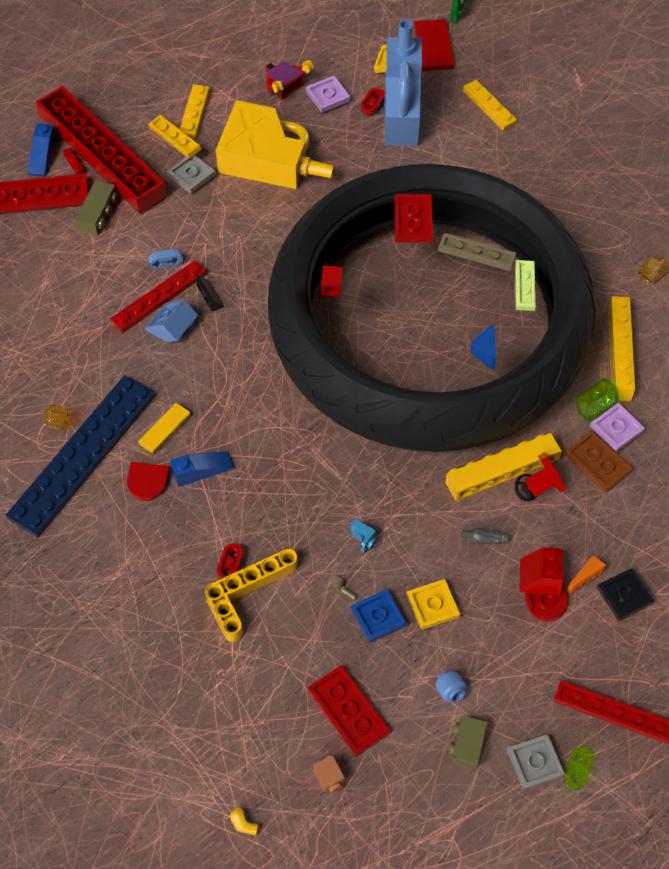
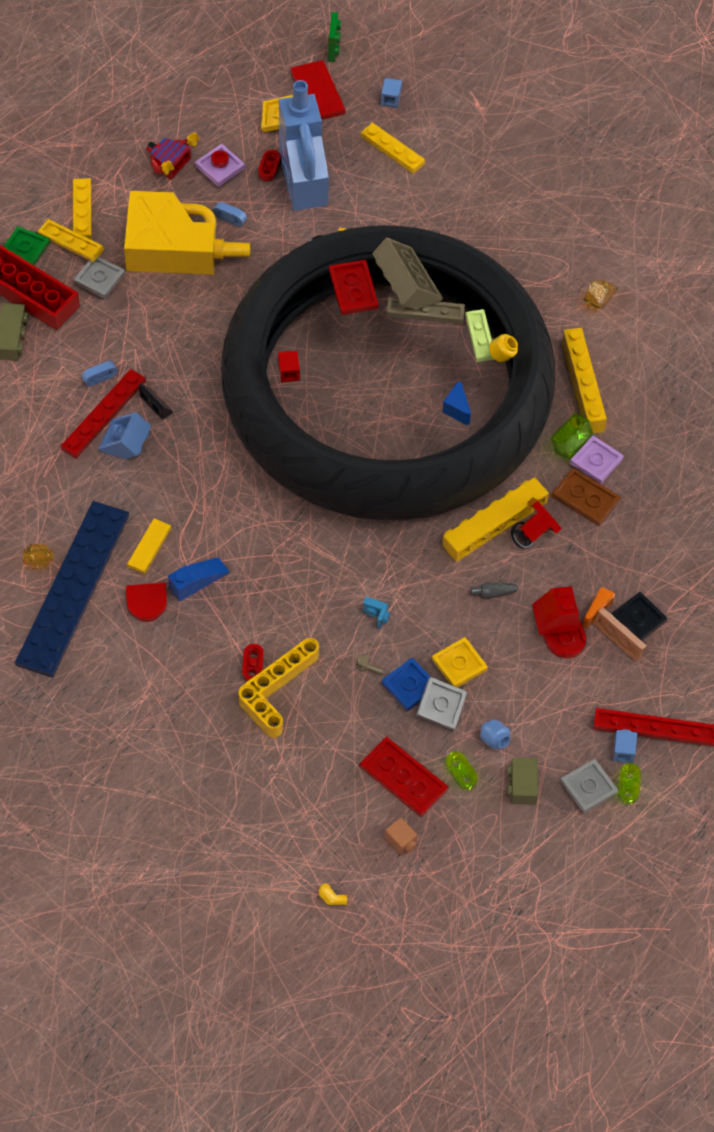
camera: 15 degrees left, 0 degrees up
(134, 134) = (27, 244): none -> green plate
(324, 138) = (229, 214): none -> medium blue beam
(328, 88) = (219, 159): none -> red tile
(404, 643) = (441, 703): none -> light grey plate
(407, 718) = (462, 771): none -> clear neon green plate
(466, 214) = (406, 274): none -> dark tan slope
(500, 56) = (391, 93): none -> medium blue brick
(543, 300) = (503, 348): none -> yellow head
(581, 727) = (624, 746): none -> medium blue brick
(601, 608) = (619, 634): none -> nougat plate

